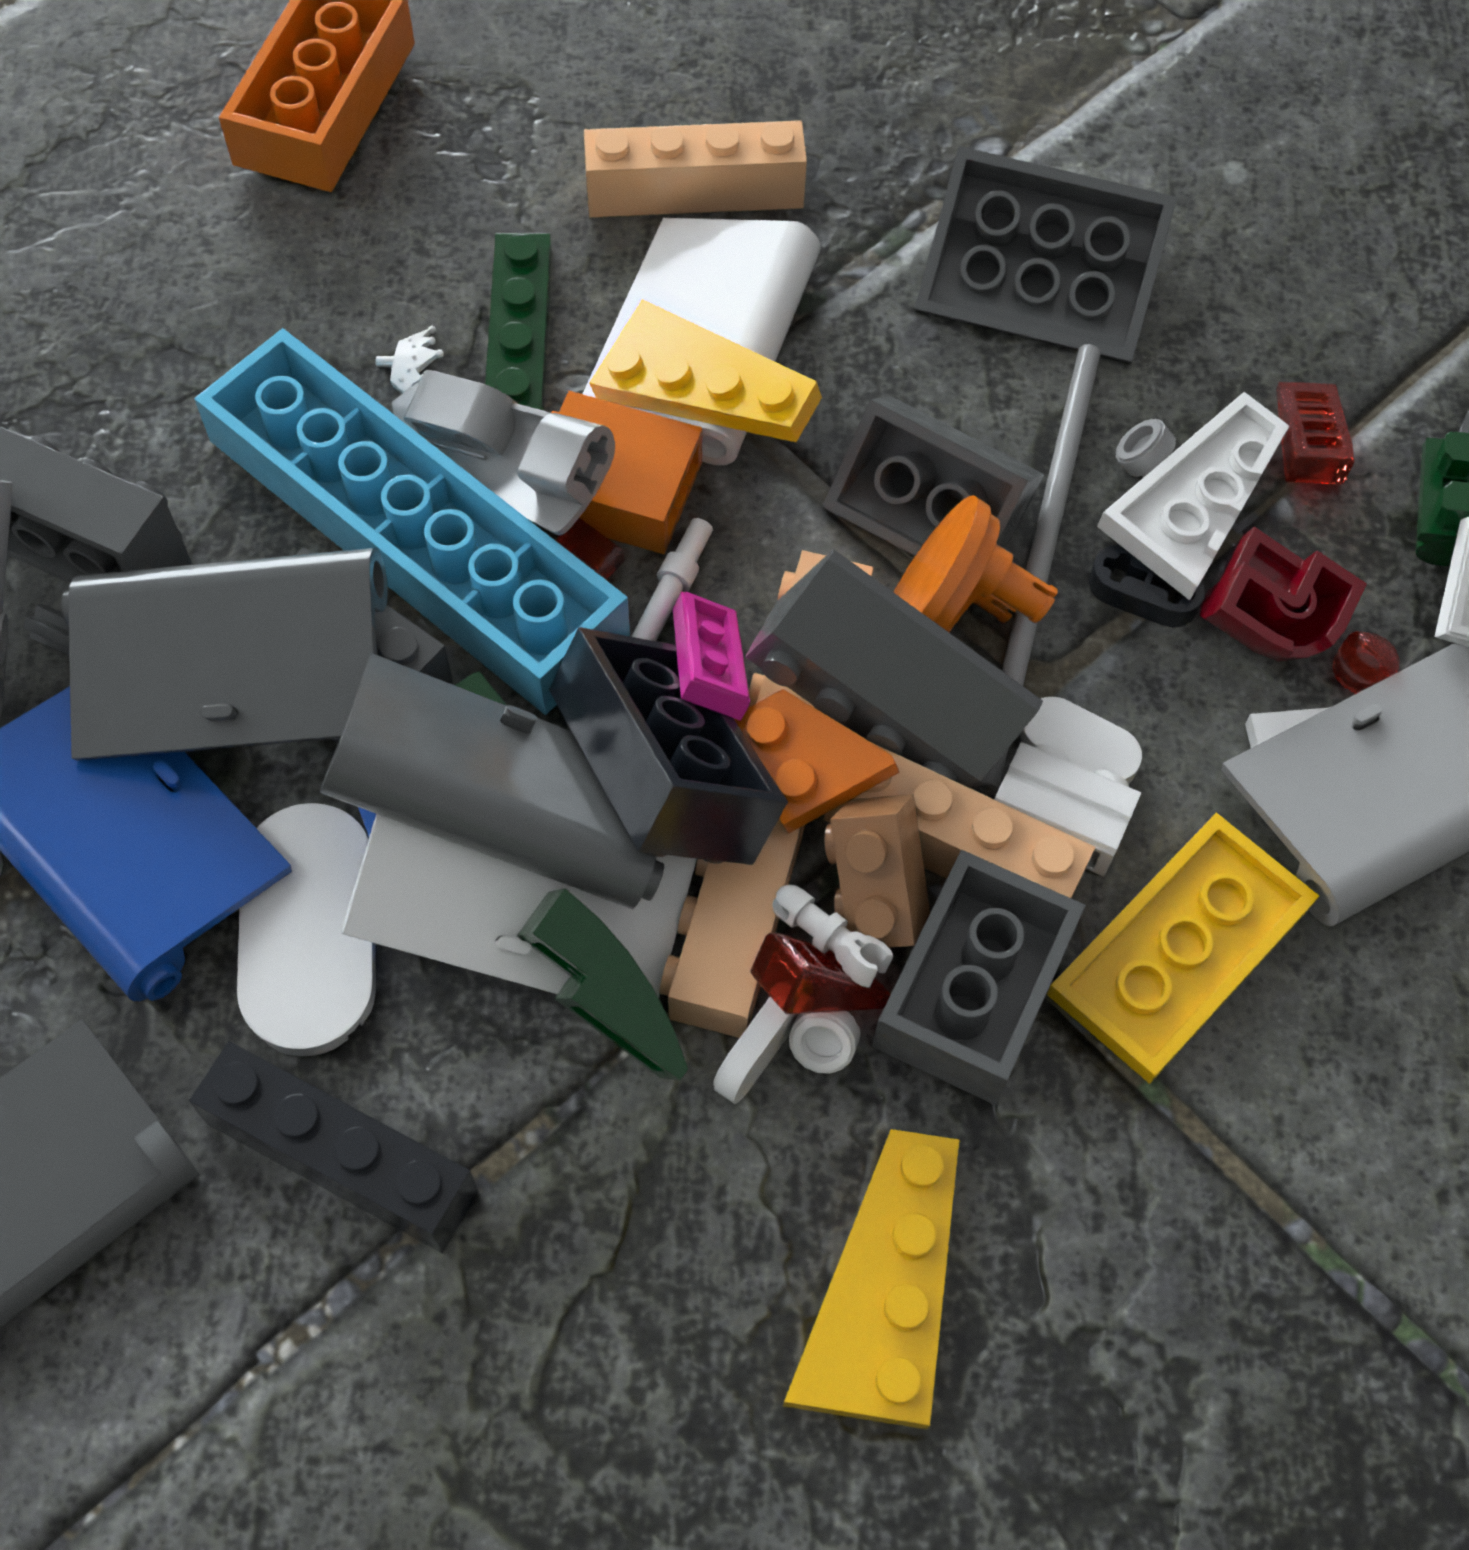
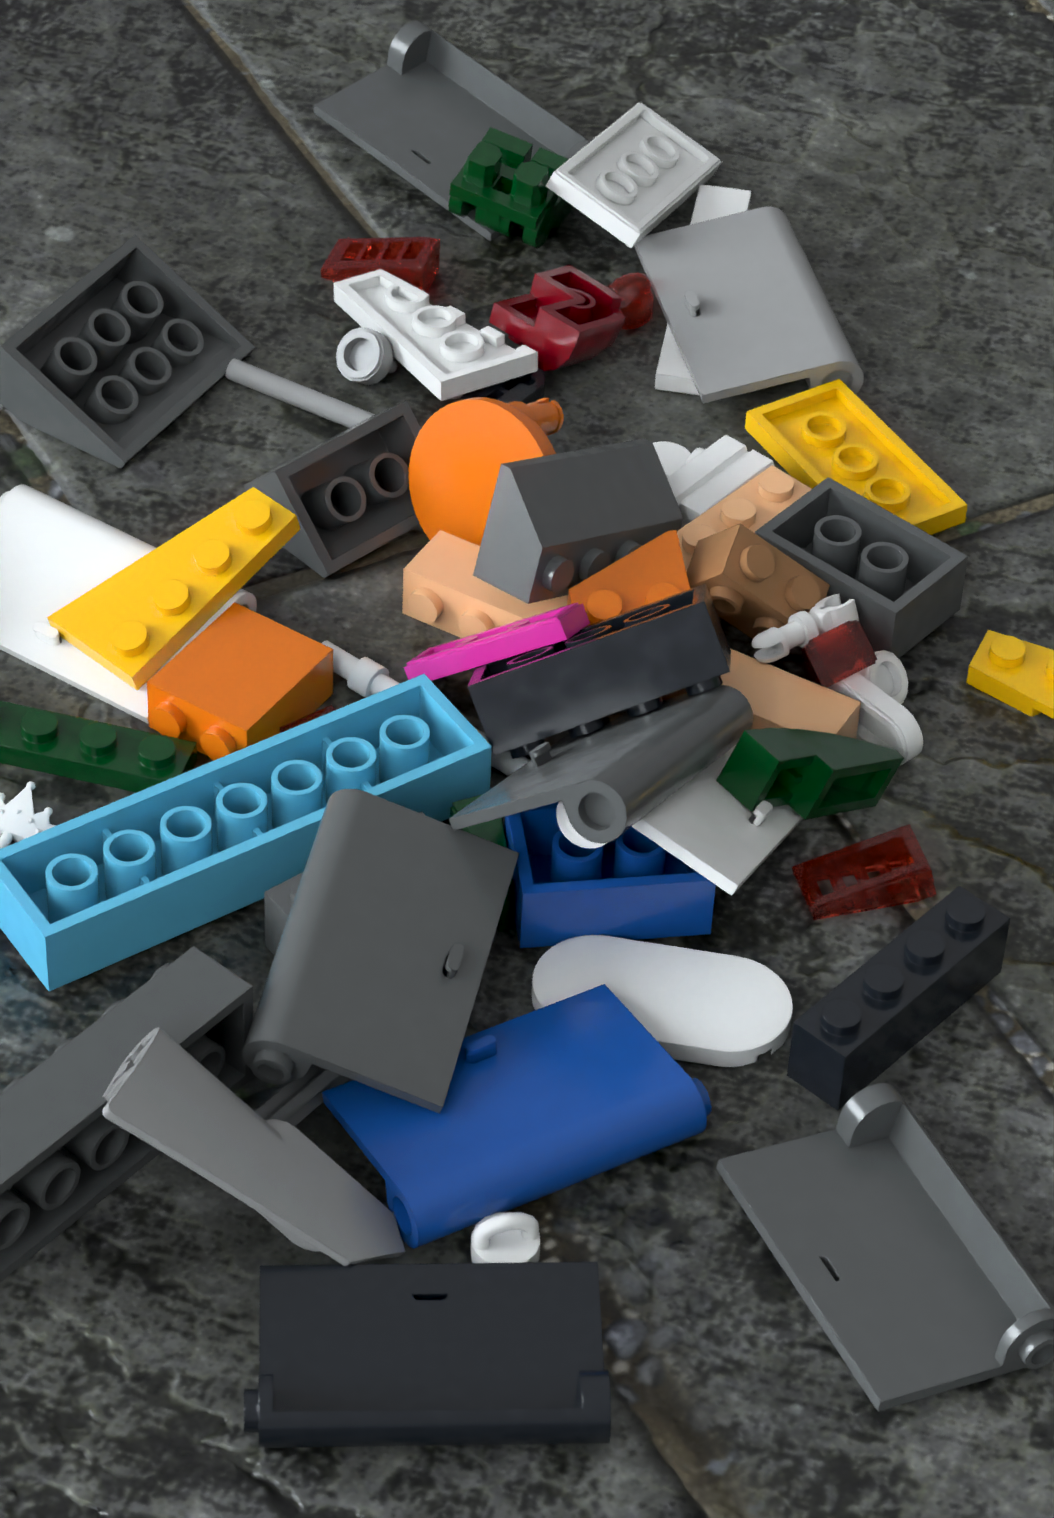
camera: 75 degrees left, 20 degrees down
(527, 456) = (238, 699): light grey panel -> none
(552, 1121) = (880, 853): none -> clear red slope

